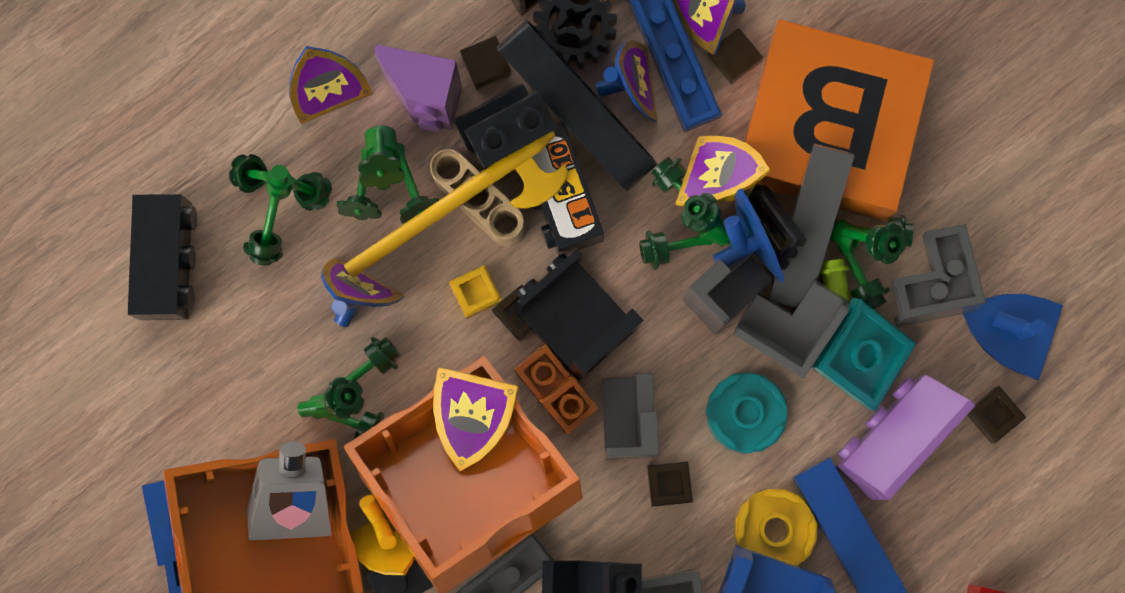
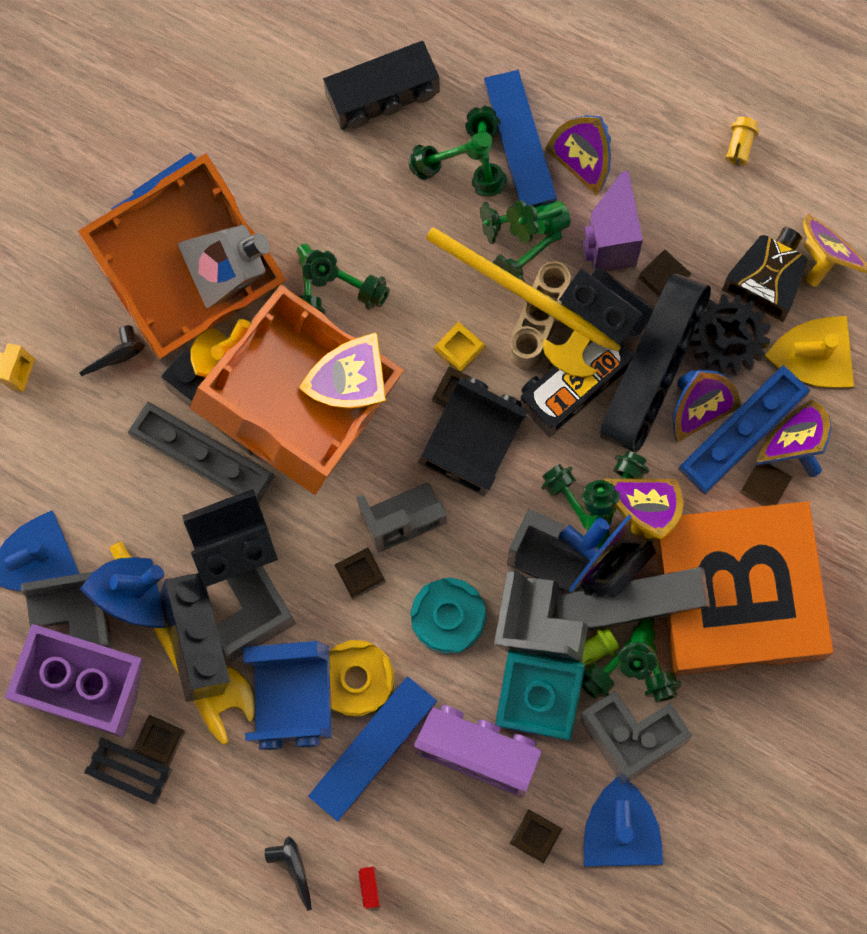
camera: 70 degrees right, 5 degrees down
(282, 143) = (520, 139): none -> blue tile
(354, 291) = (411, 243): shield -> none
(555, 388) = (403, 446): orange slope -> none

